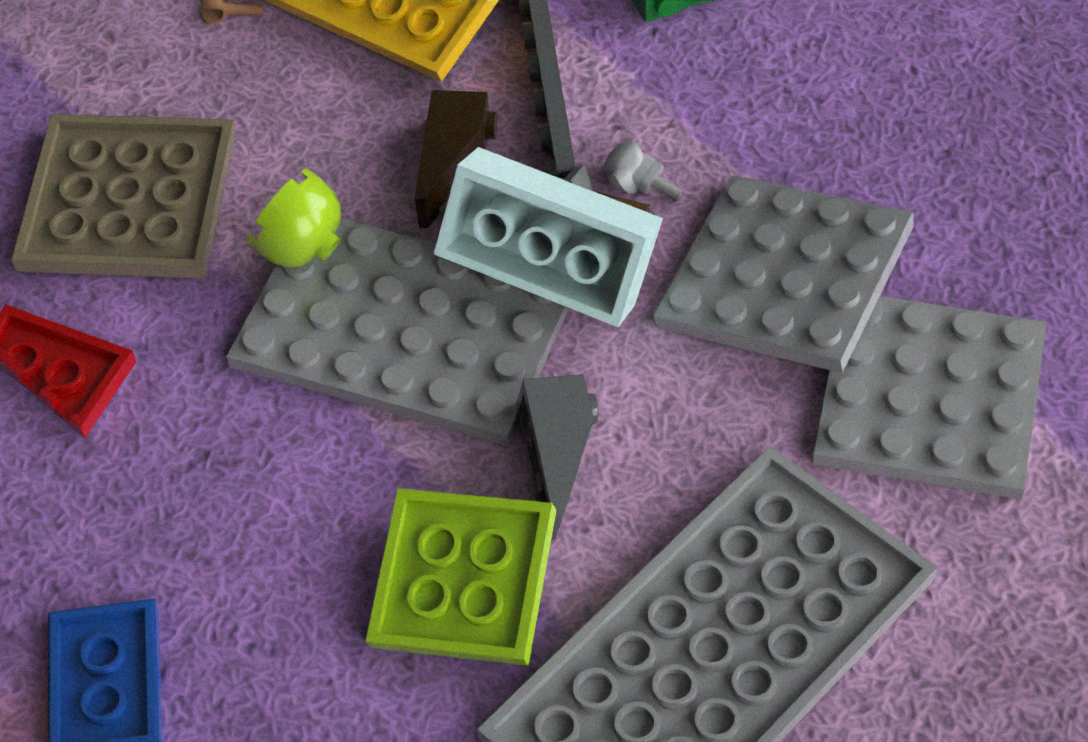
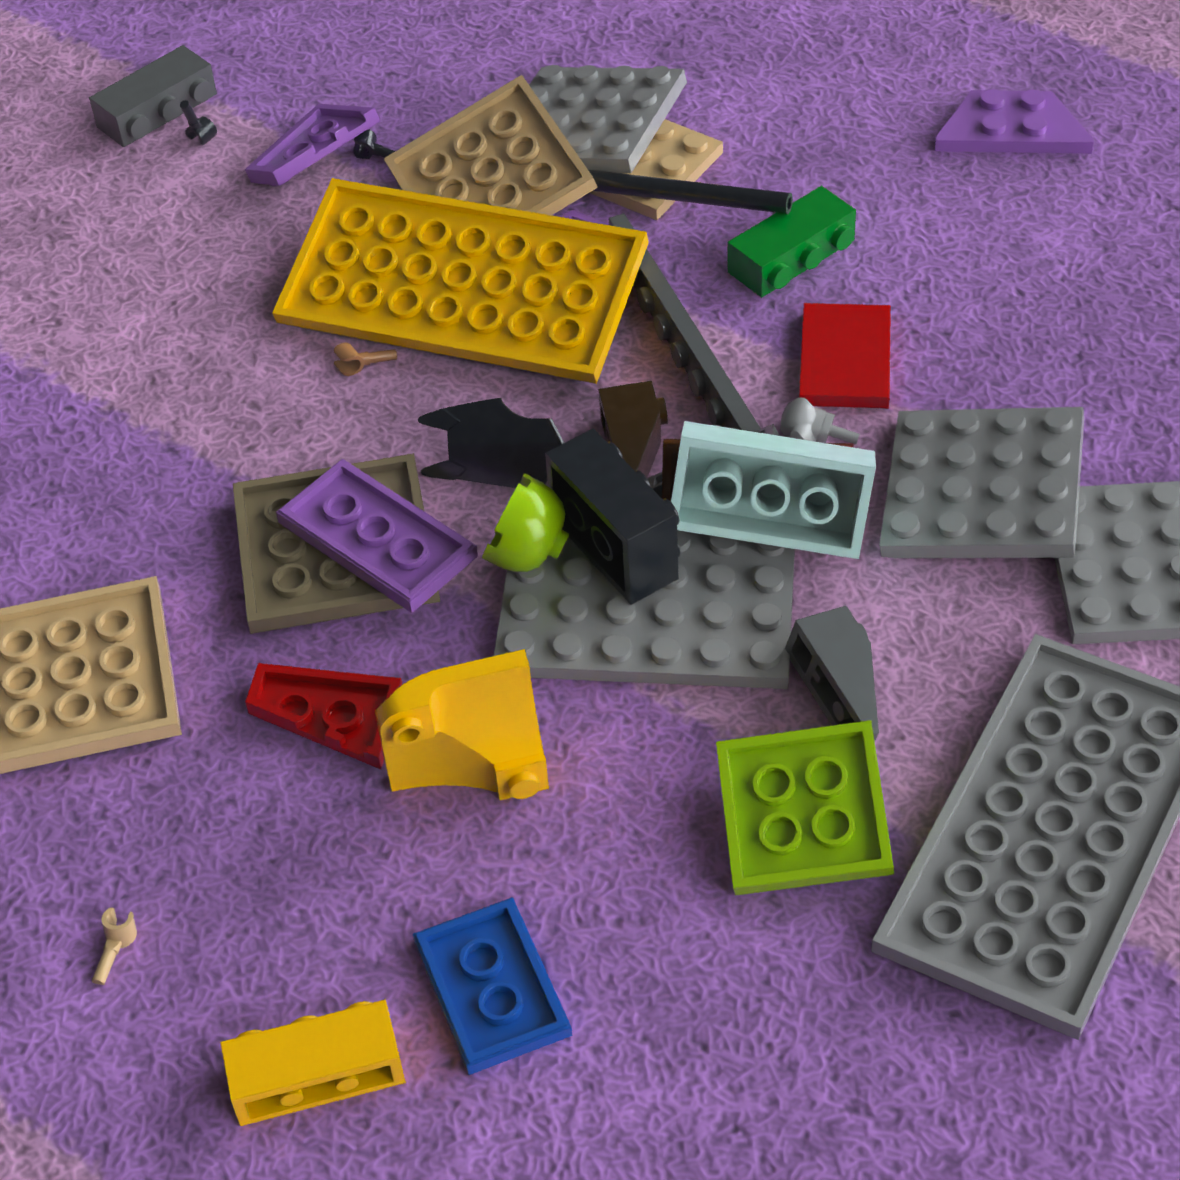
camera: 15 degrees left, 5 degrees down
(158, 418) = (466, 729): none -> yellow slope
(163, 198) = (377, 535): none -> medium lavender tile
(311, 127) = (492, 443): none -> black shield
(385, 229) = (615, 515): none -> black brick
(703, 103) = (846, 355): none -> red tile

